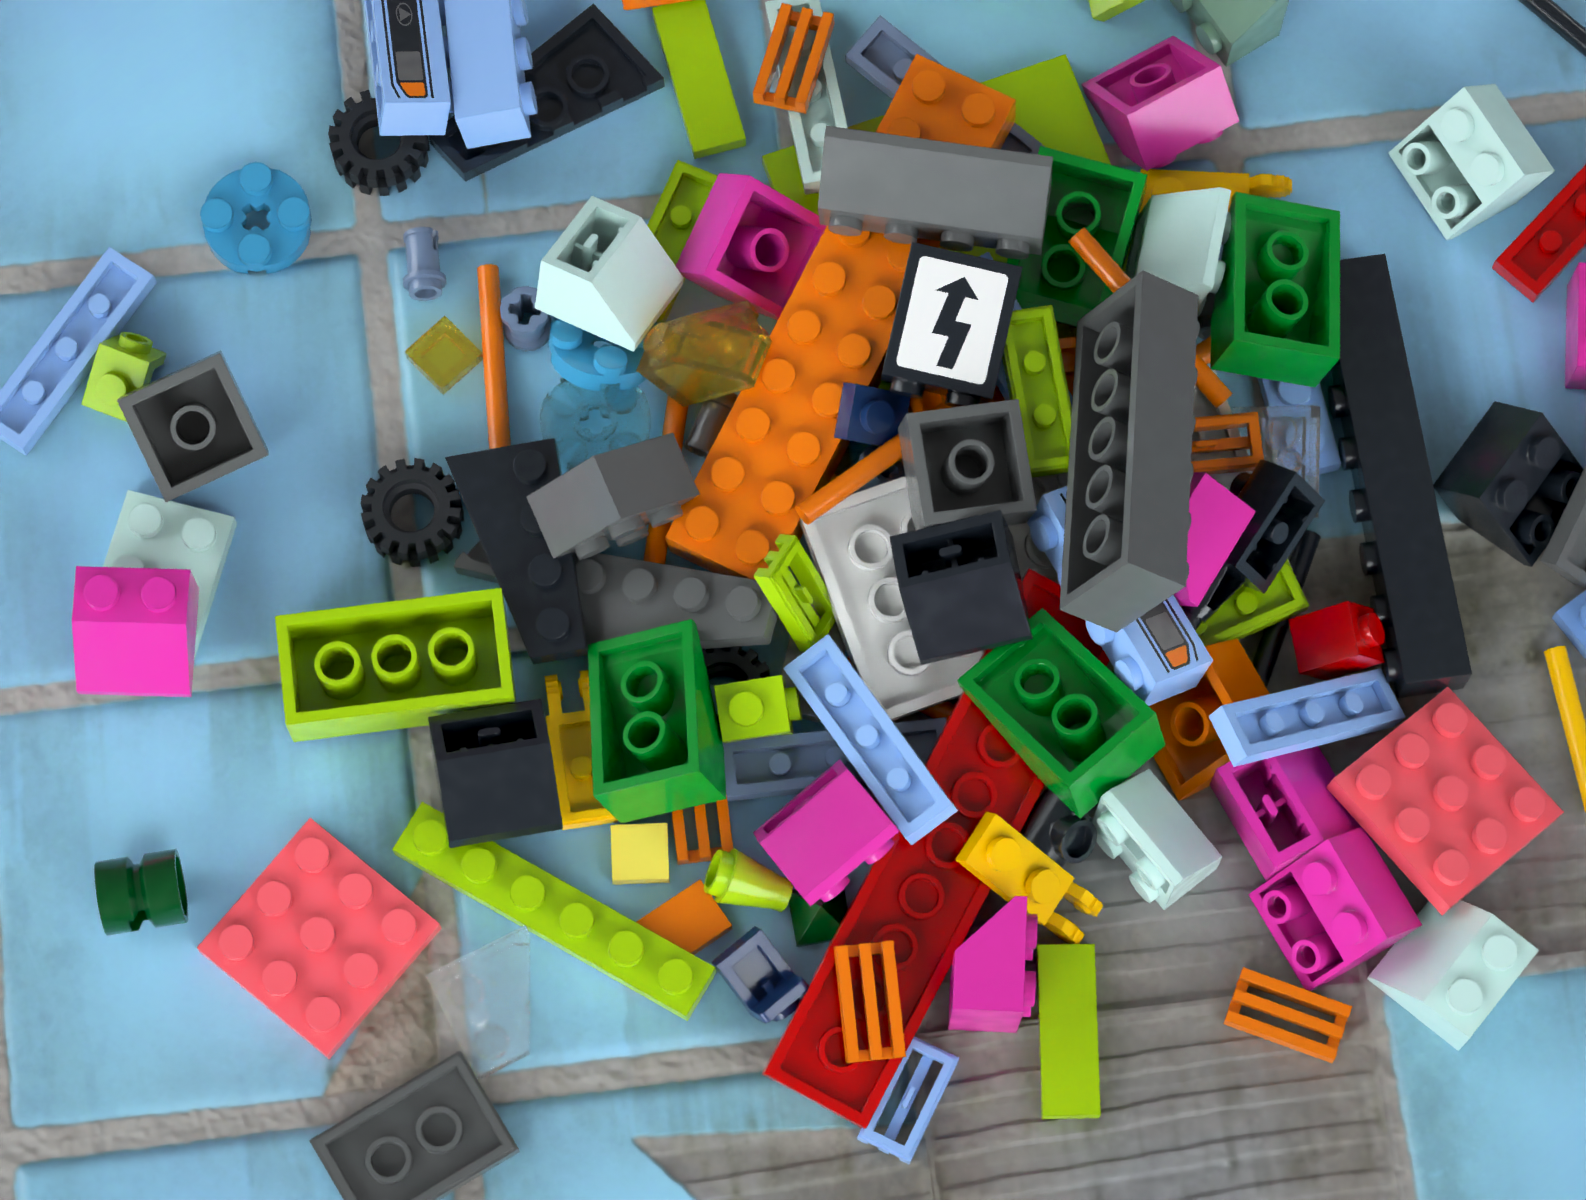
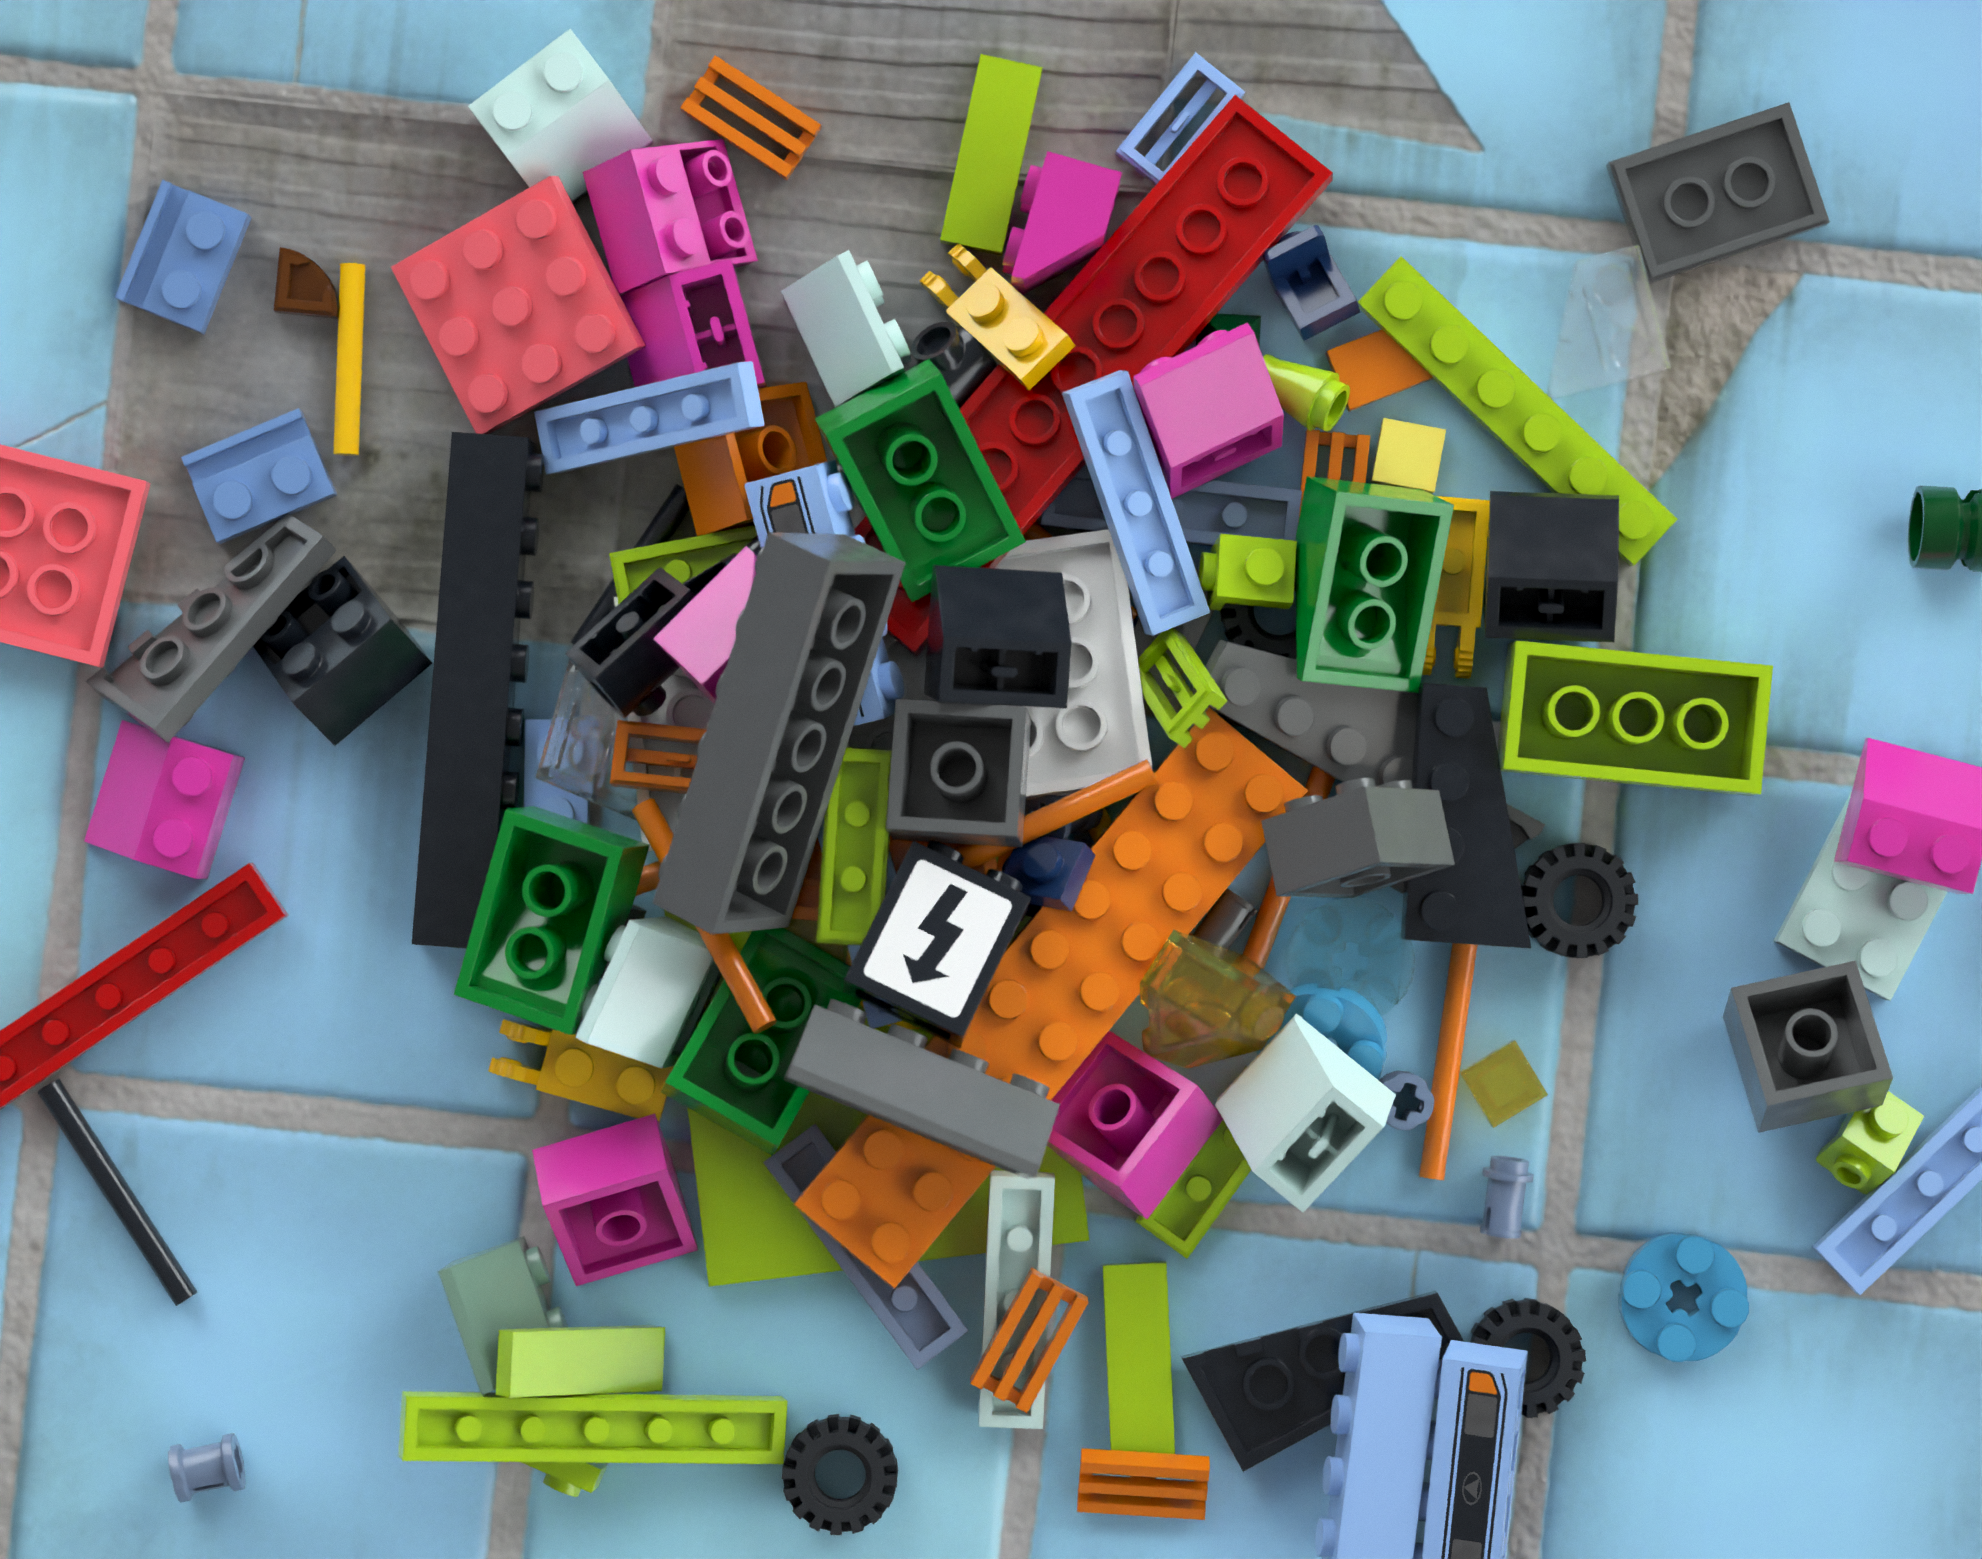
camera: 170 degrees left, 15 degrees up
(319, 938) = (1775, 443): coral plate -> none
(892, 1000) = (1207, 167): orange tile -> none
(1337, 640) = (588, 508): red brick -> none
(1470, 160) = (276, 1044): light aqua slope -> none

